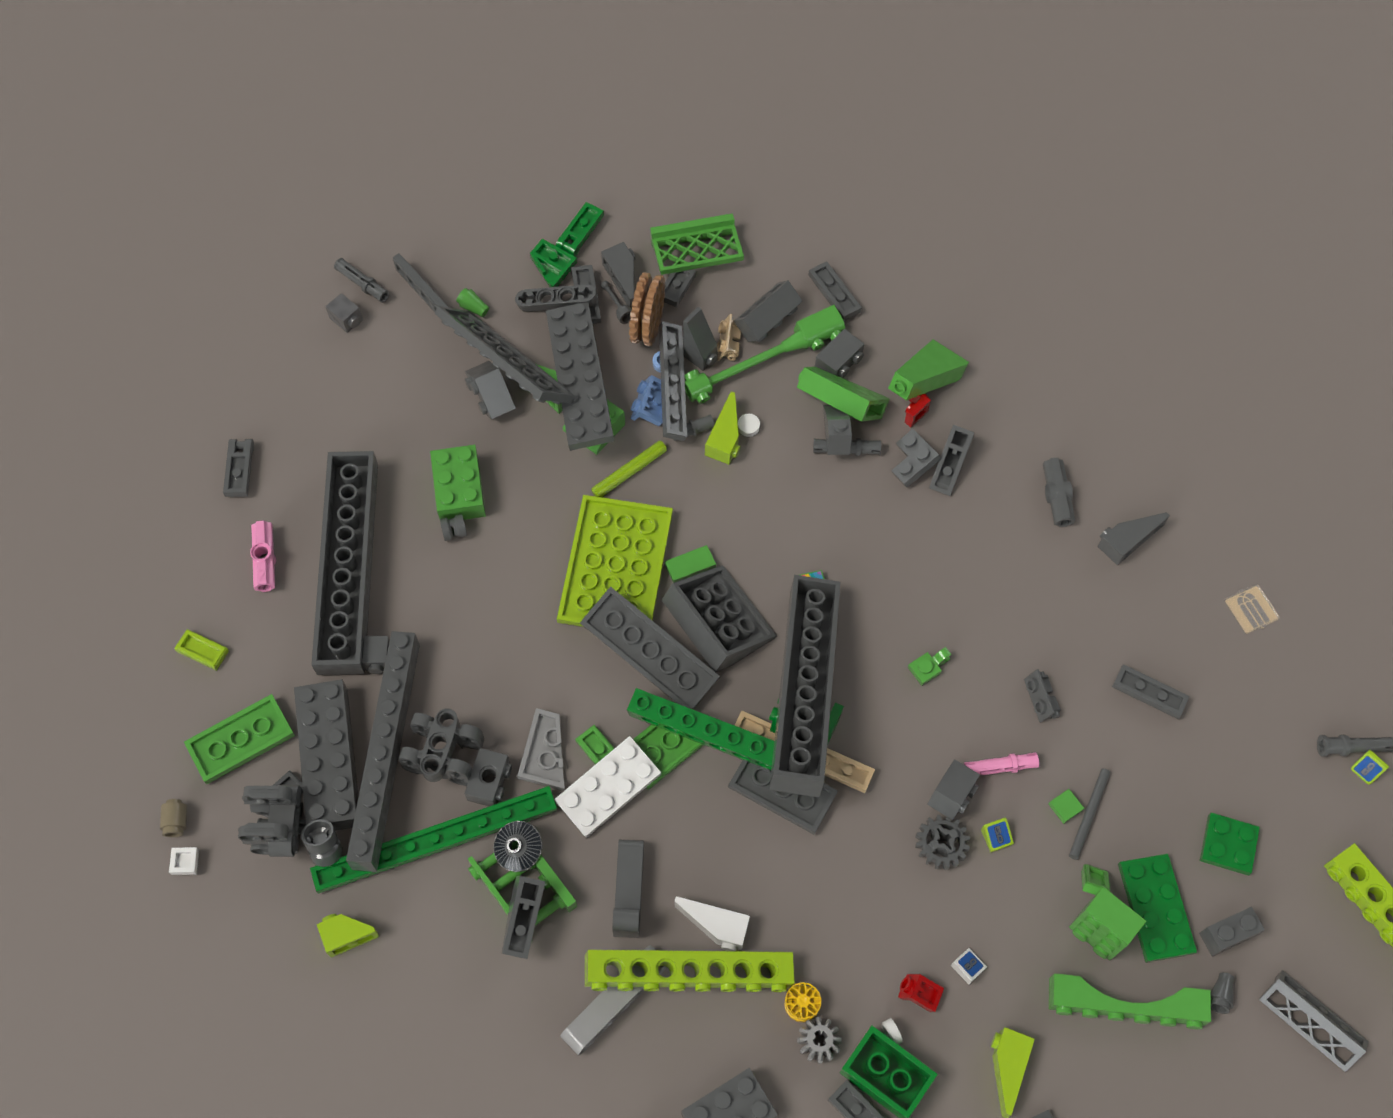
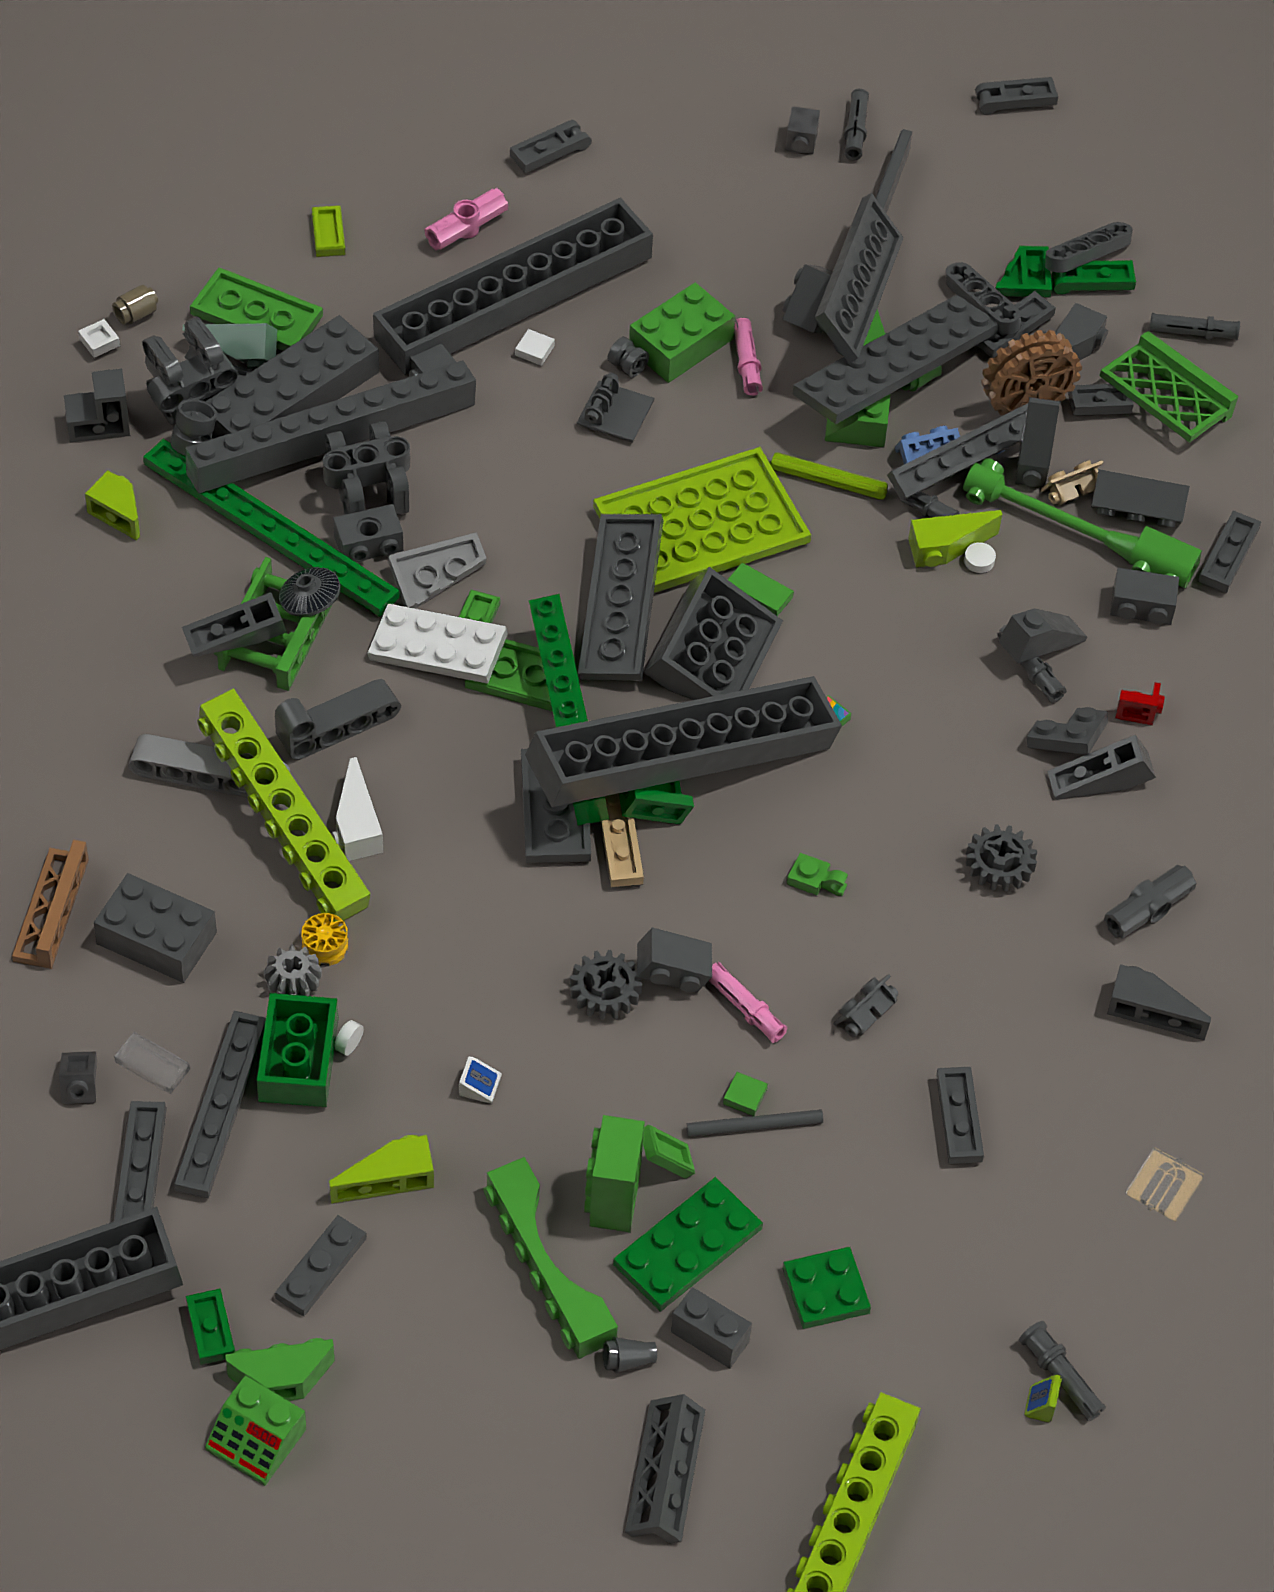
camera: 55 degrees right, 10 degrees down
(254, 900) = (100, 412): none -> dark grey brick
(263, 767) = (248, 343): none -> sand green slope
(400, 579) = (534, 347): none -> white tile
(407, 179) = (1016, 94): none -> dark grey plate
(470, 301) = (913, 228): bright green cone -> none
(488, 561) = (615, 409): none -> dark grey hinge
(509, 460) = (748, 364): none -> bright pink pin
(560, 217) = (1088, 247): none -> dark grey beam
(662, 196) = (1195, 326): none -> dark grey pin
(842, 394) = (1091, 622): bright green slope -> none
(921, 991) = (415, 1046): red bracket -> none
(928, 370) = (1191, 682): bright green slope -> none
(983, 561) = (1001, 857): none -> dark grey gear
(997, 834) = (657, 1038): slope -> none

